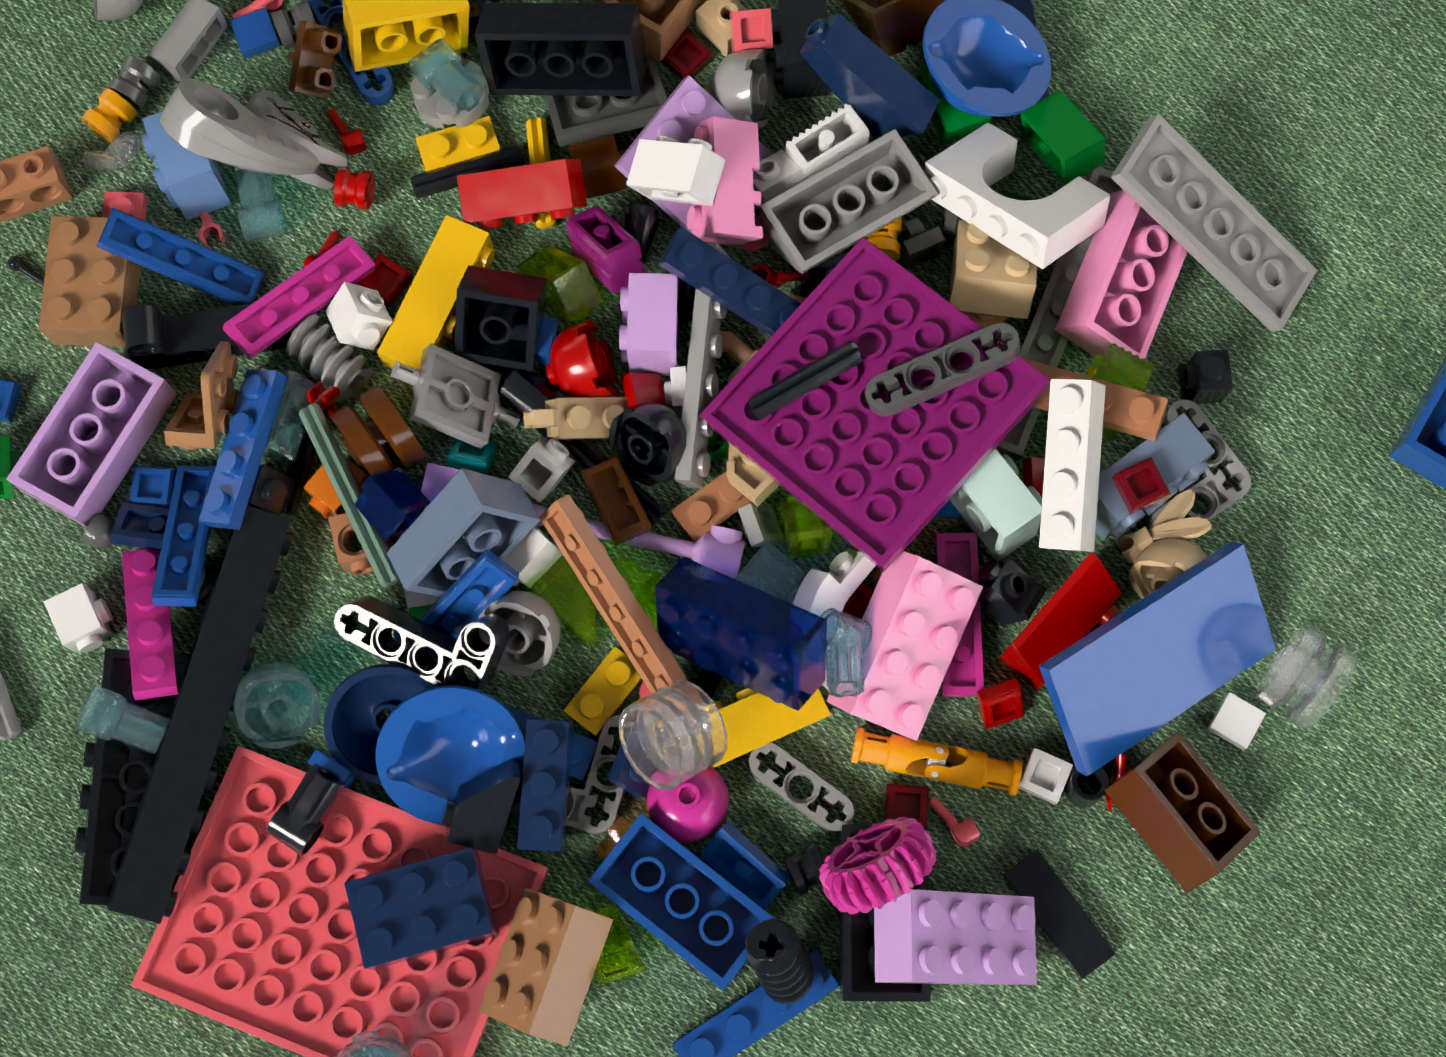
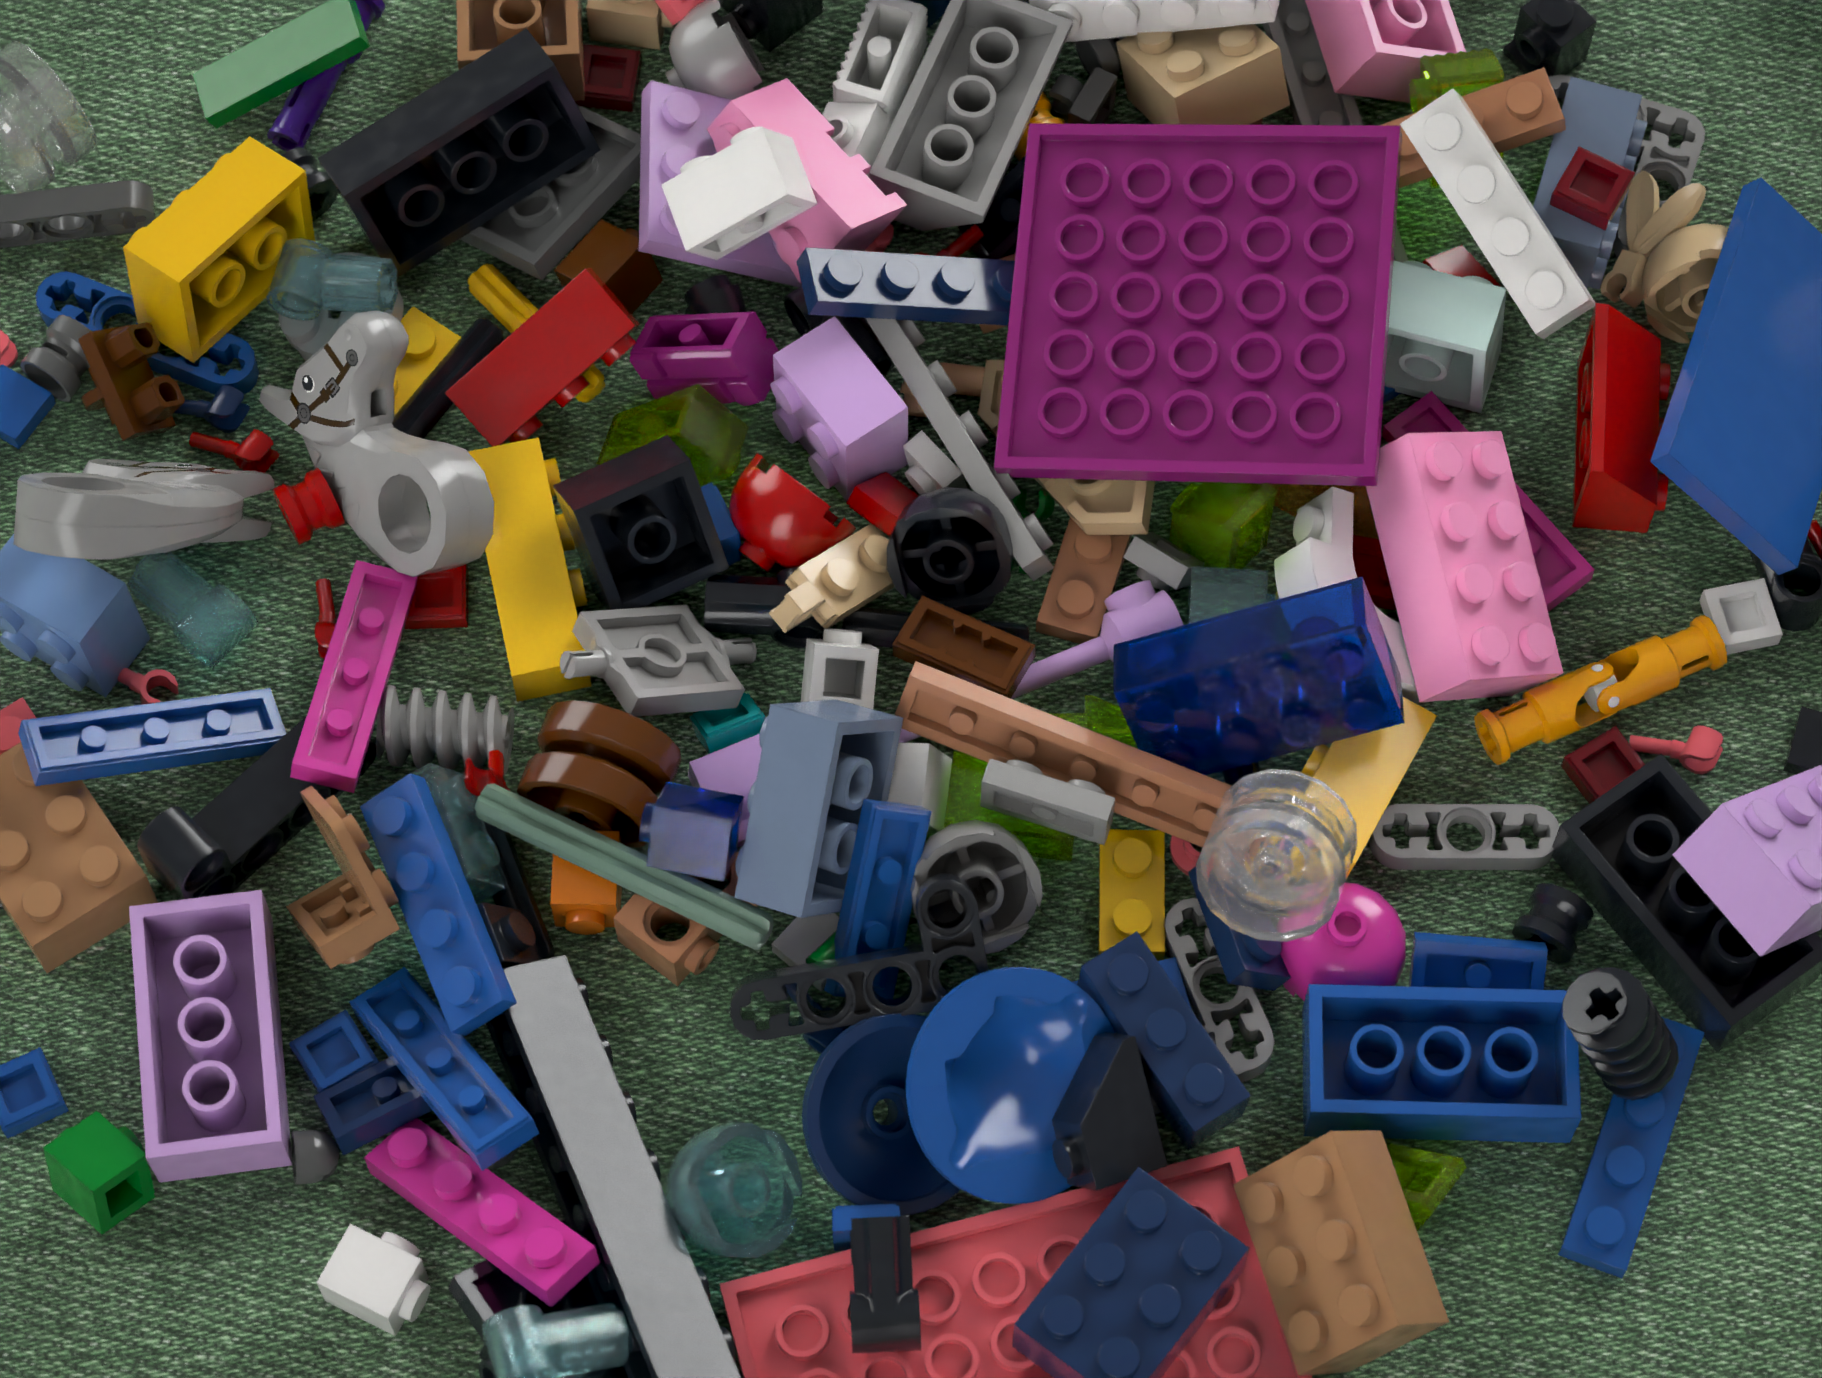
camera: 35 degrees left, 10 degrees down
(356, 107) = (223, 412): none -> dark blue hand
(358, 316) = (449, 649): white brick -> none
(399, 213) = (375, 471): none -> light grey animal
(576, 600) = (1027, 794): none -> light grey plate
(616, 832) = (1290, 1054): clear orange tile -> none
(805, 379) = (1099, 330): black axle -> none
(845, 645) = (1411, 616): clear light blue piece -> none
(877, 865) = (1654, 817): dark pink gear -> none
(945, 375) = (1254, 198): dark grey beam -> none
(1000, 703) = (1621, 568): red tile -> none
(1008, 591) = (1534, 429): black brick -> none

